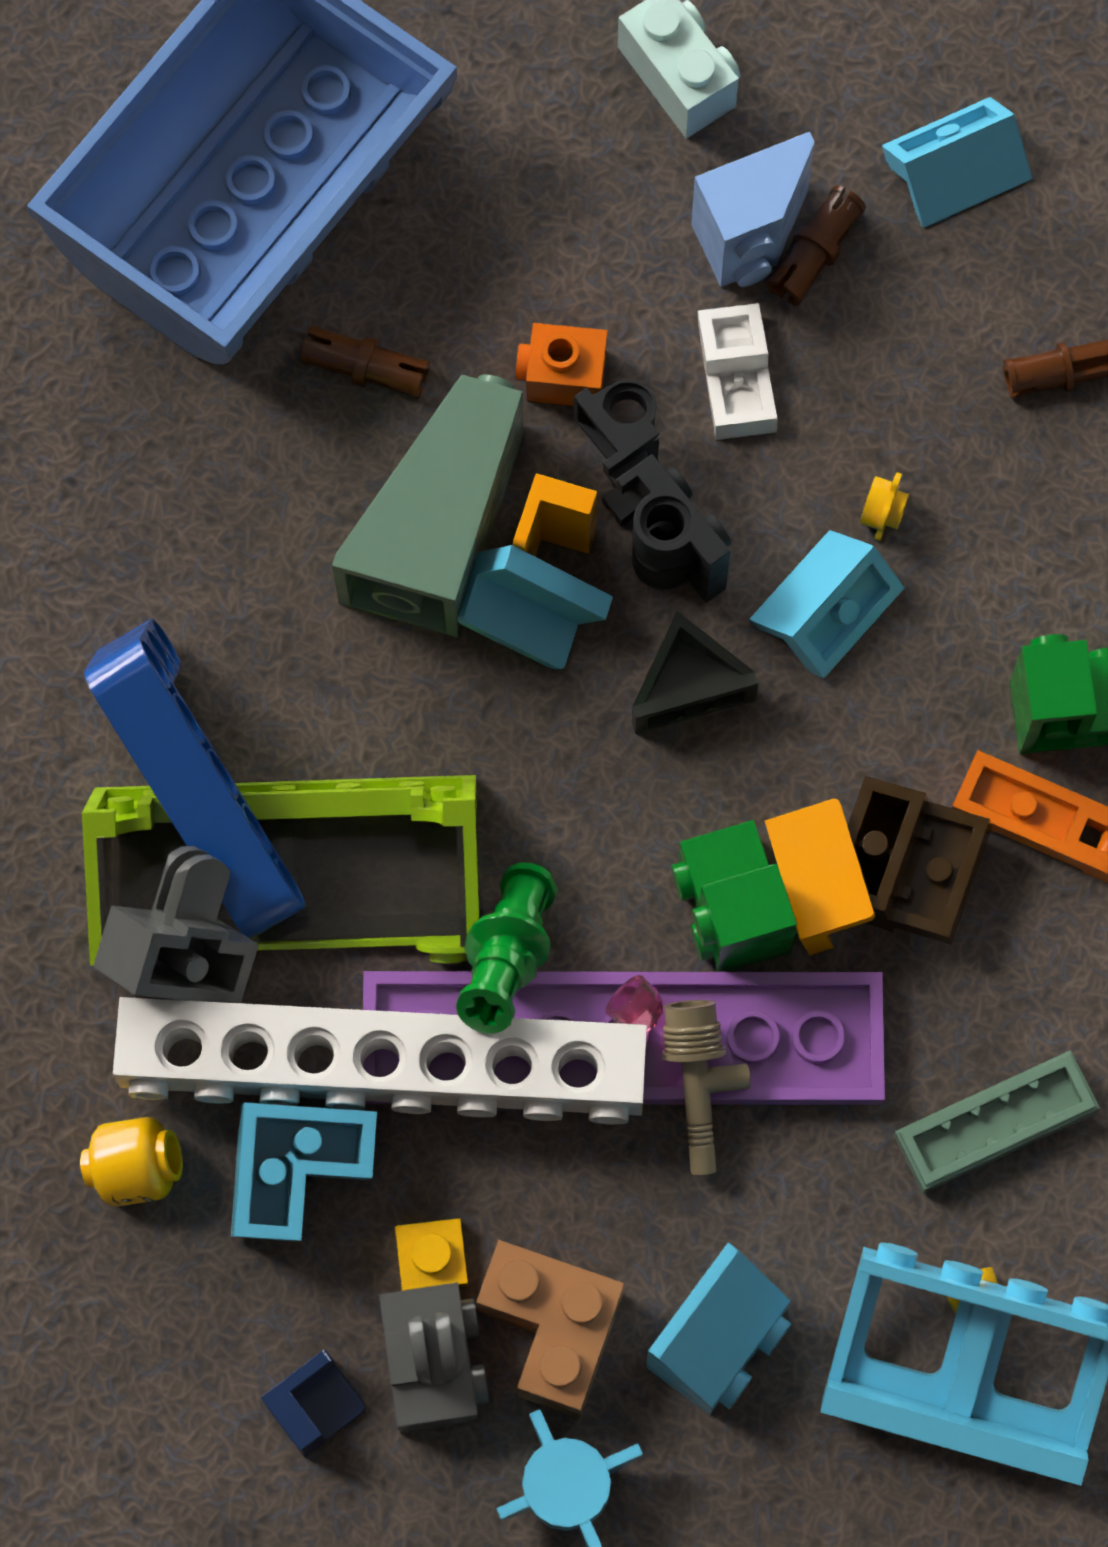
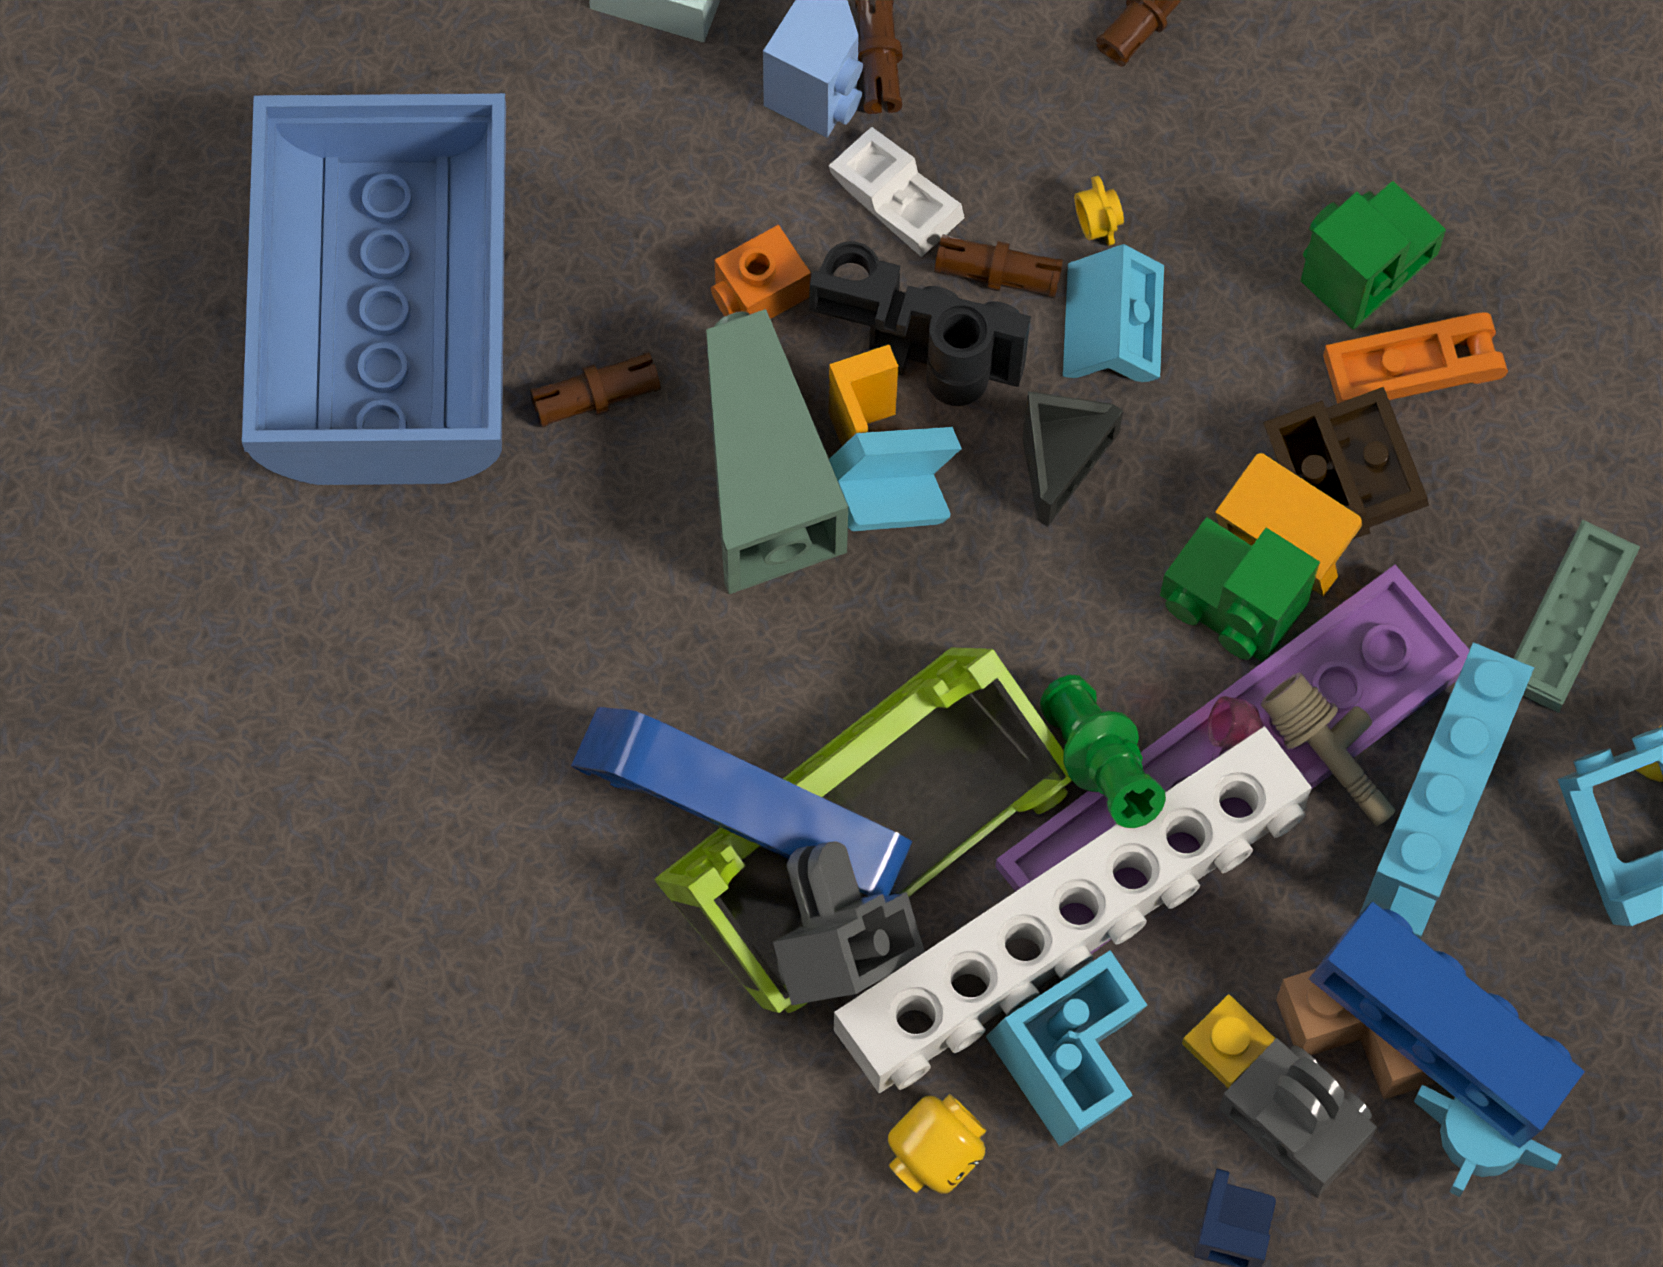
camera: 40 degrees left, 5 degrees down
(587, 1376) = (1447, 1024): none -> blue brick
(719, 1332) = (1502, 922): medium azure slope -> none
(755, 1187) = (1449, 785): none -> medium azure window
(768, 491) = (998, 266): none -> reddish brown pin

